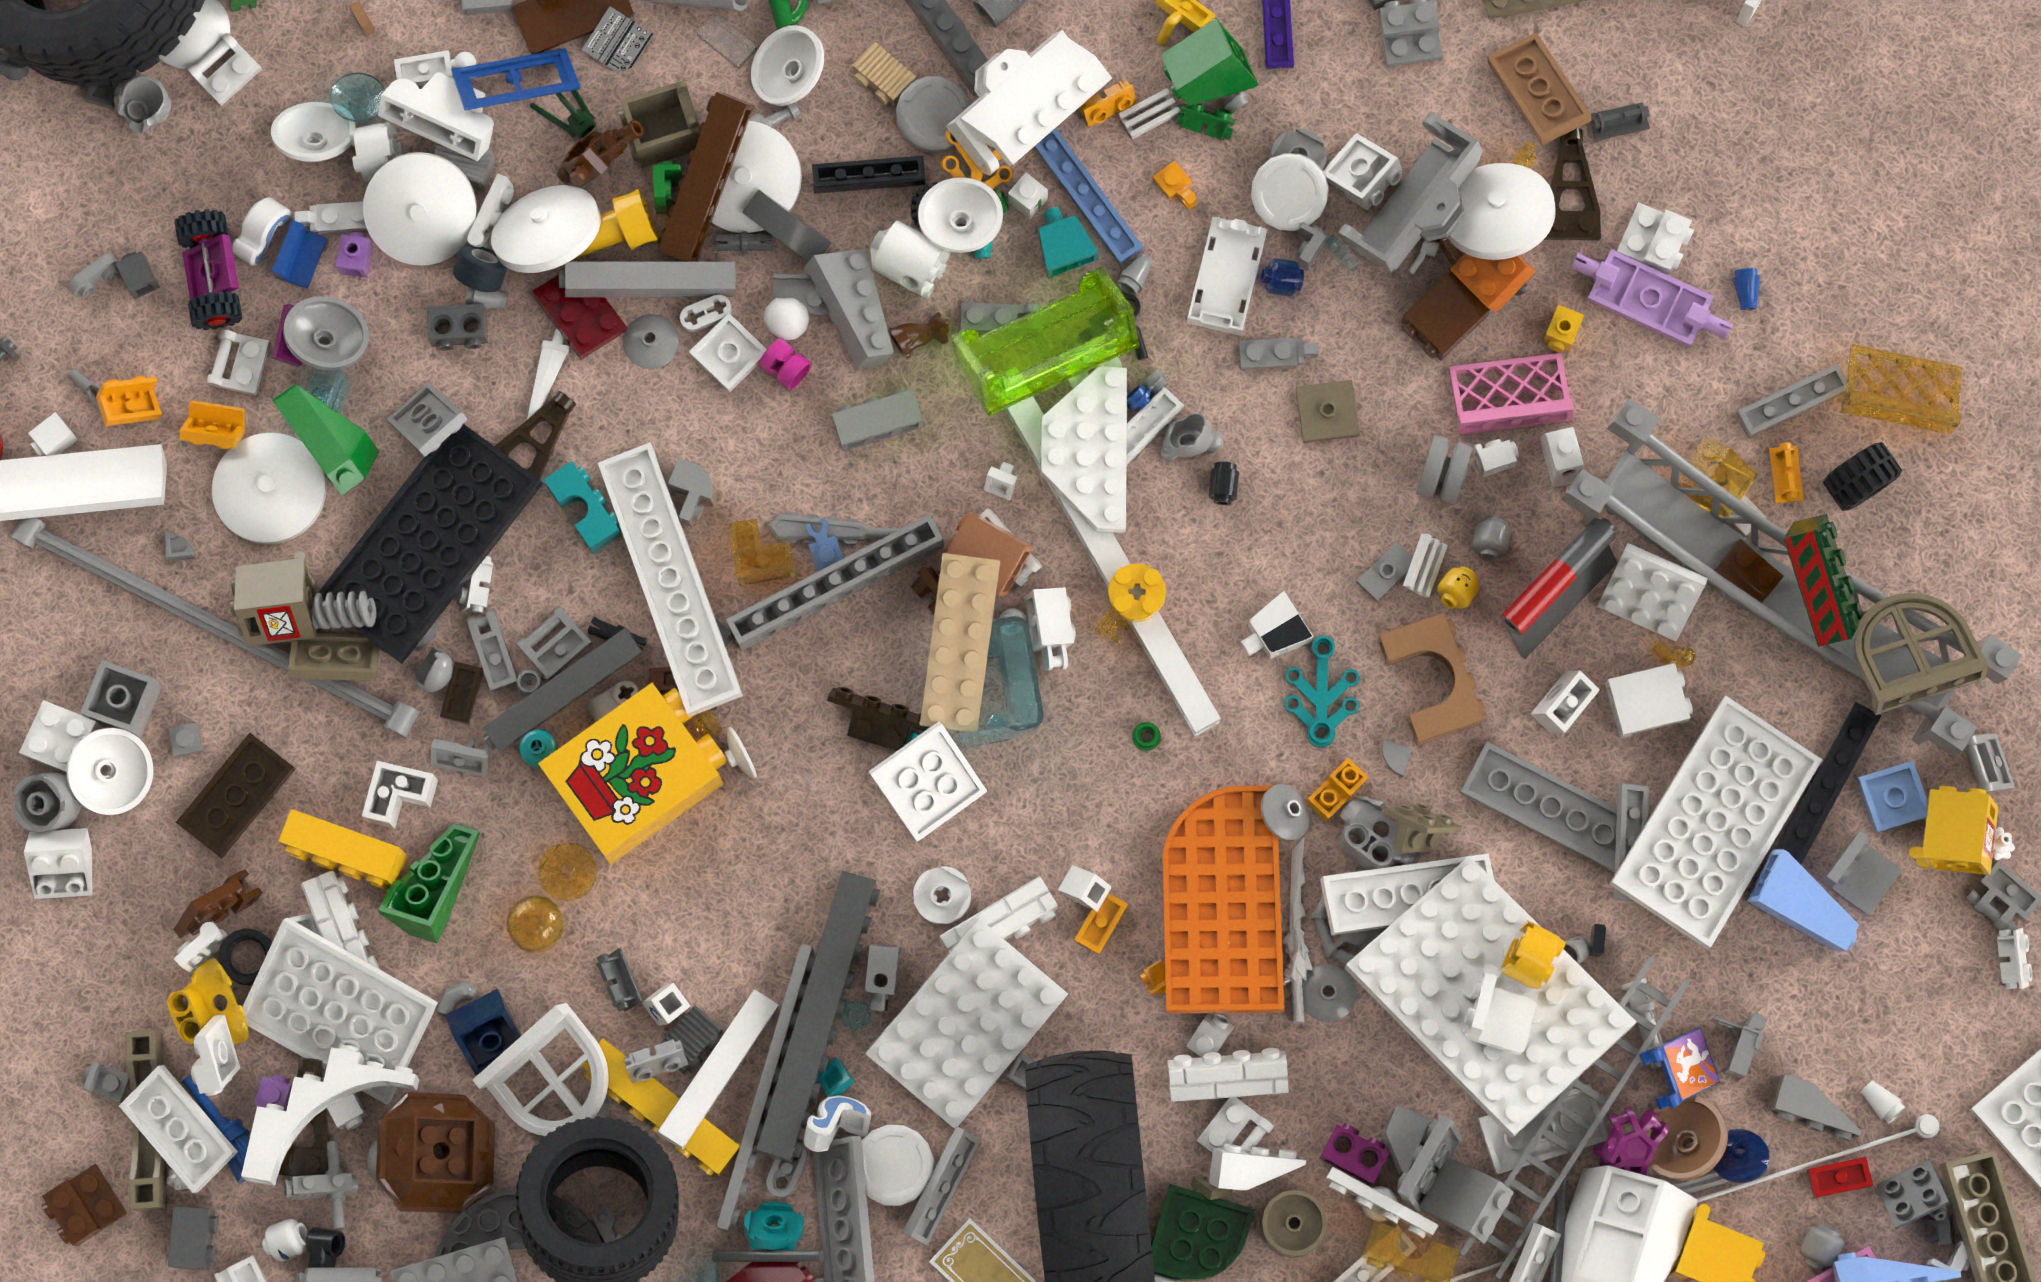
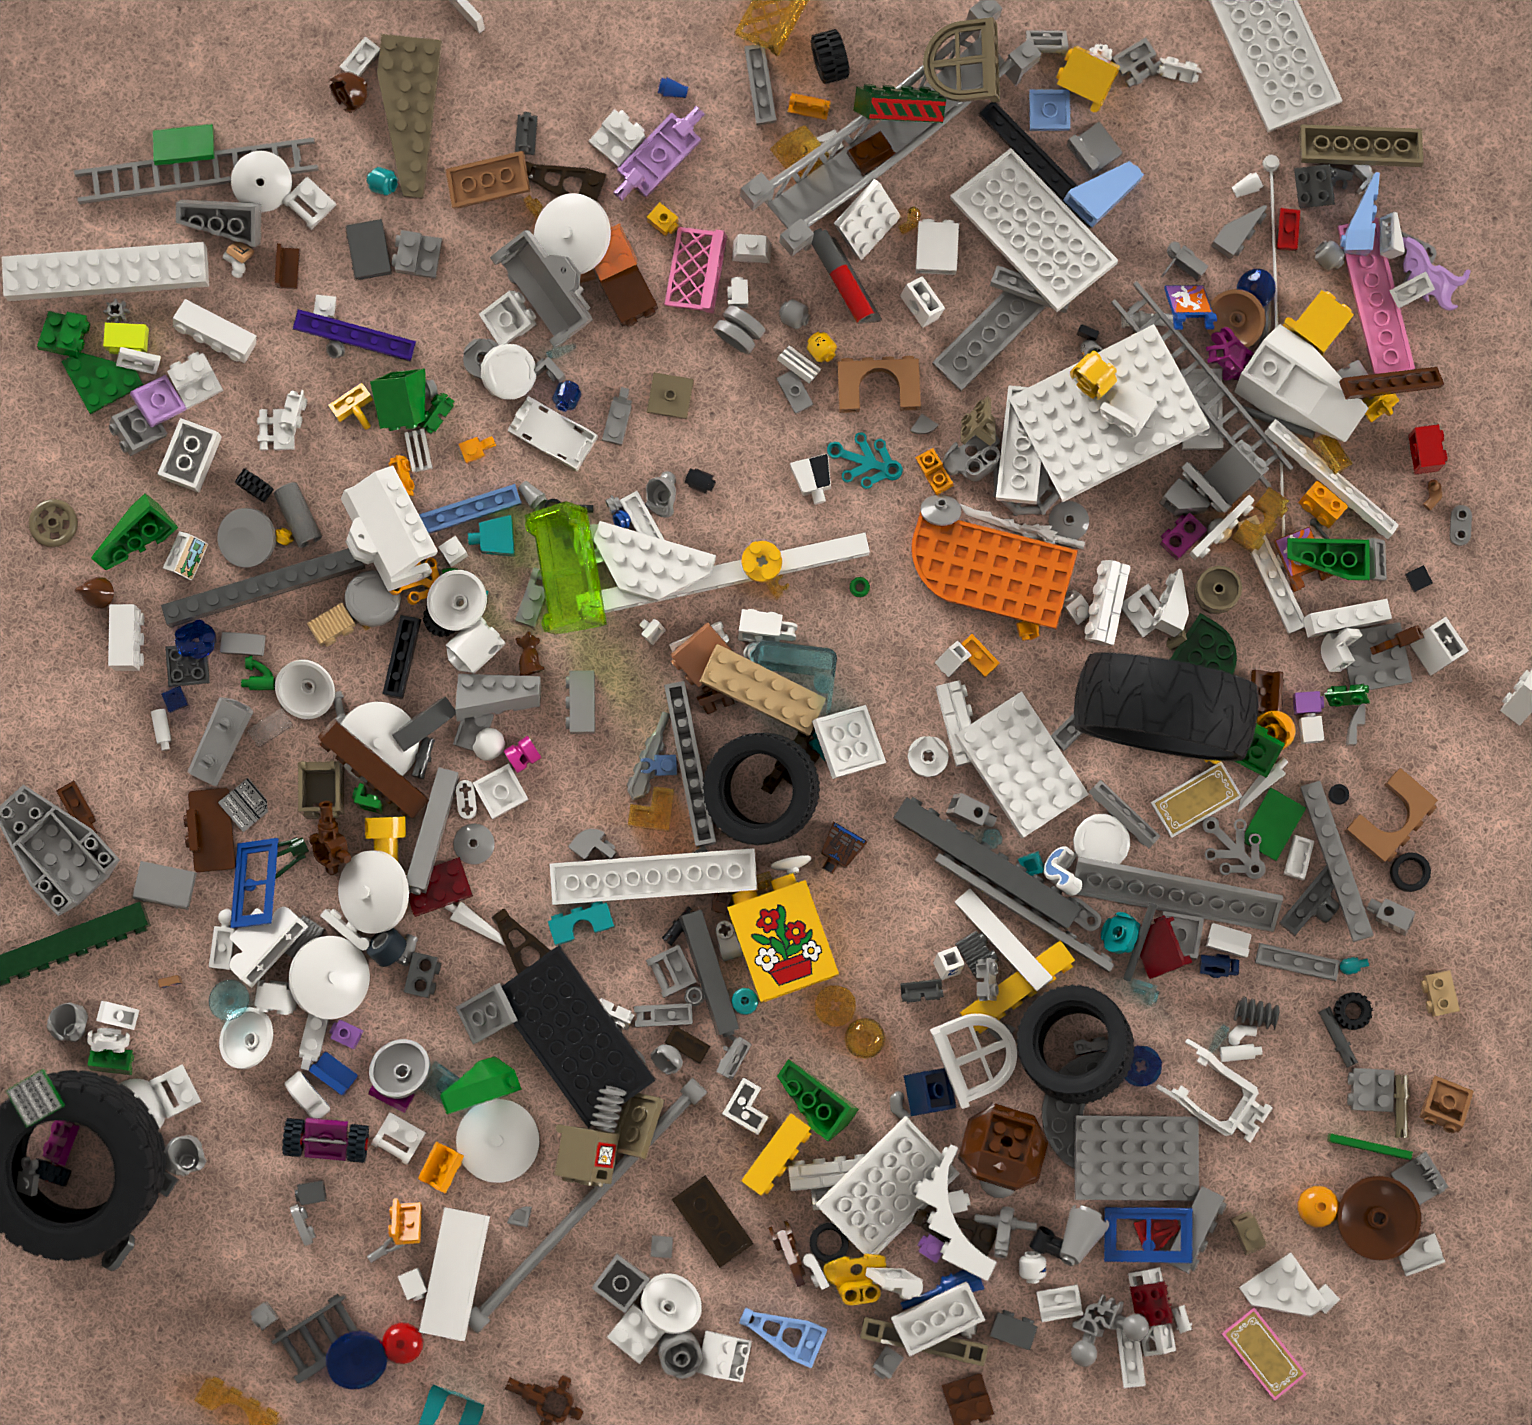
camera: 75 degrees left, 5 degrees up
(106, 970) = (808, 1345): none -> light blue plate
(783, 815) = (841, 847): none -> torso
(792, 634) = (718, 788): none -> black tyre

